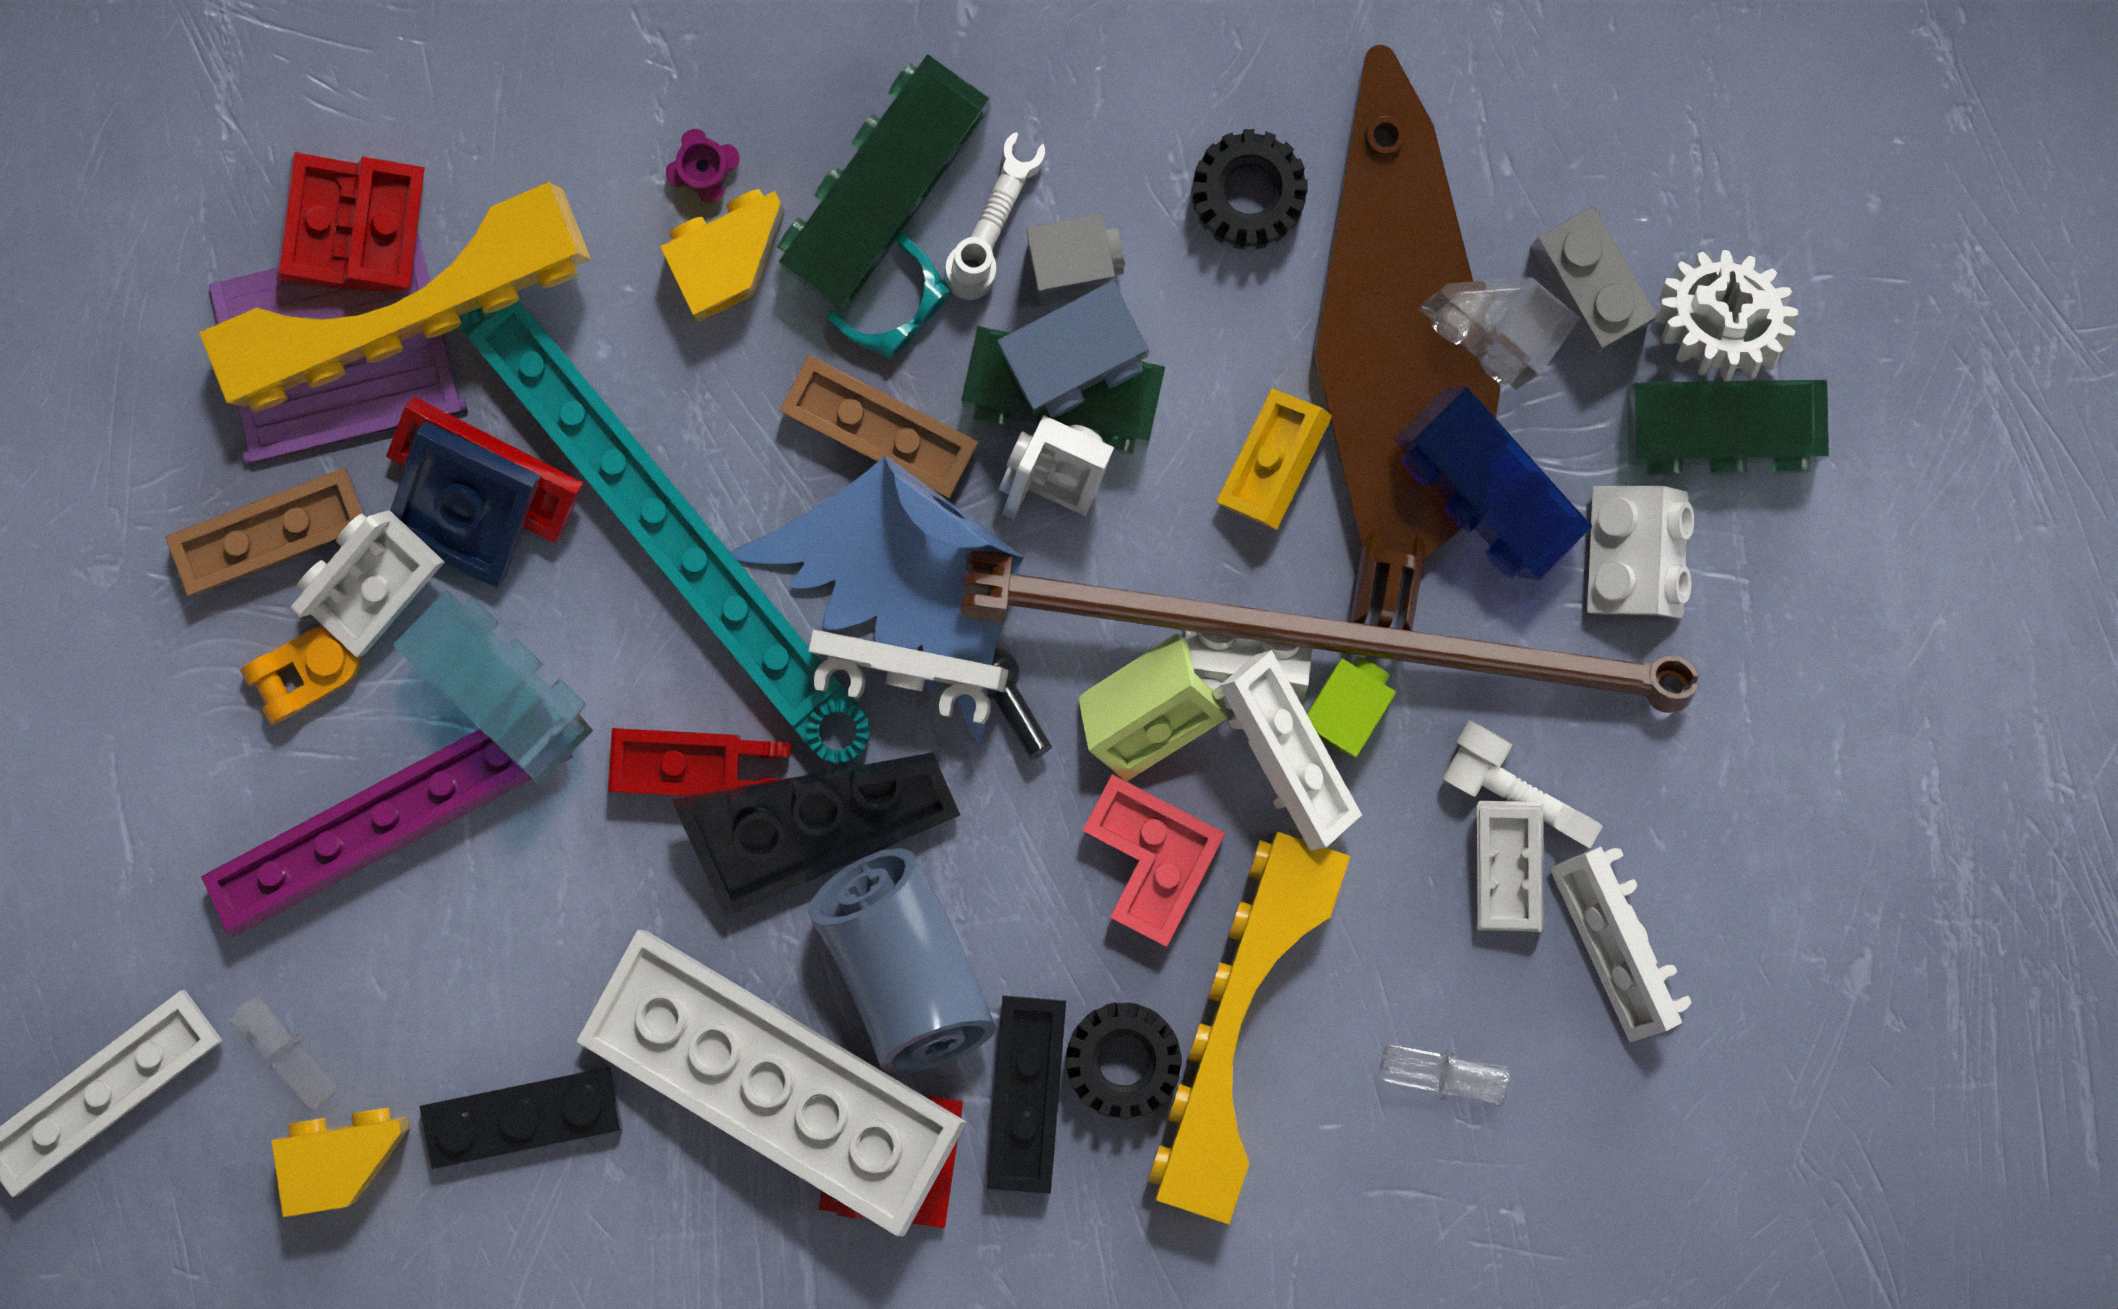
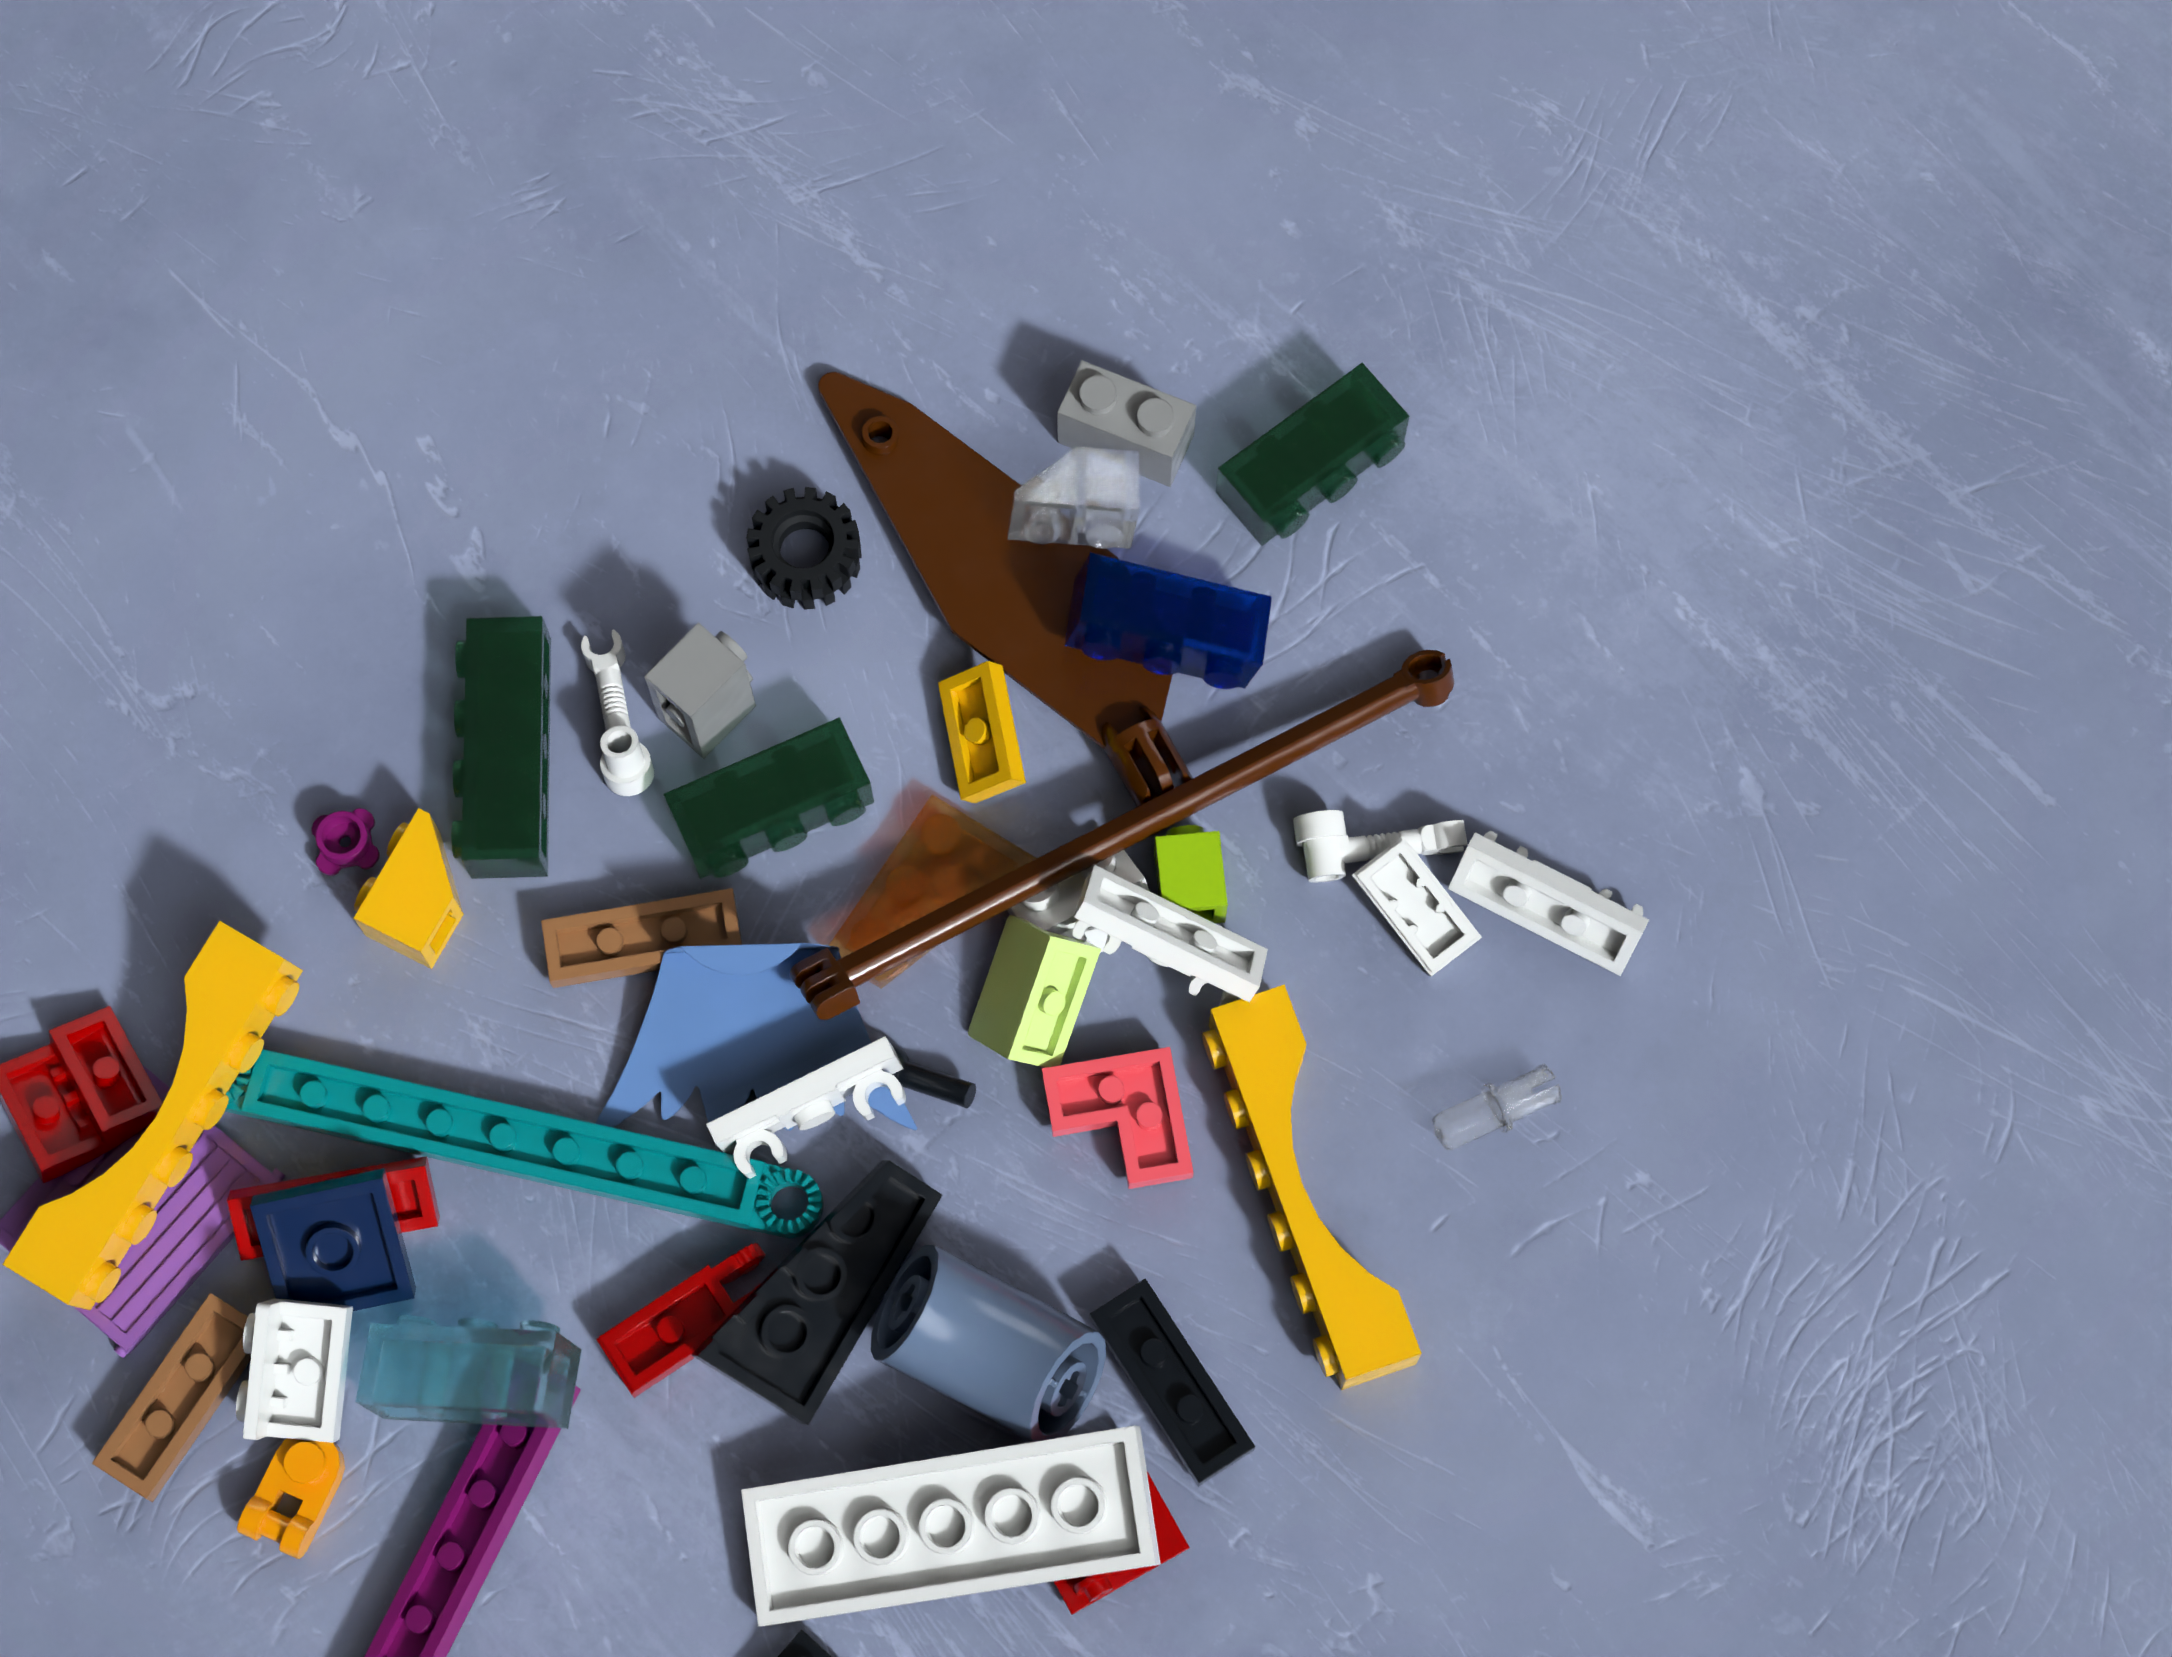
camera: 40 degrees left, 15 degrees down
(893, 342) = (604, 865): teal cap -> none
(1056, 464) = (811, 855): white bracket -> none
(1075, 350) = (755, 746): sand blue brick -> none
(1115, 1099) = (1235, 1253): black tyre -> none
(1145, 547) = (931, 866): none -> clear orange wing
(1639, 551) = (1322, 597): white bracket -> none
(1722, 311) = (1248, 375): white gear -> none

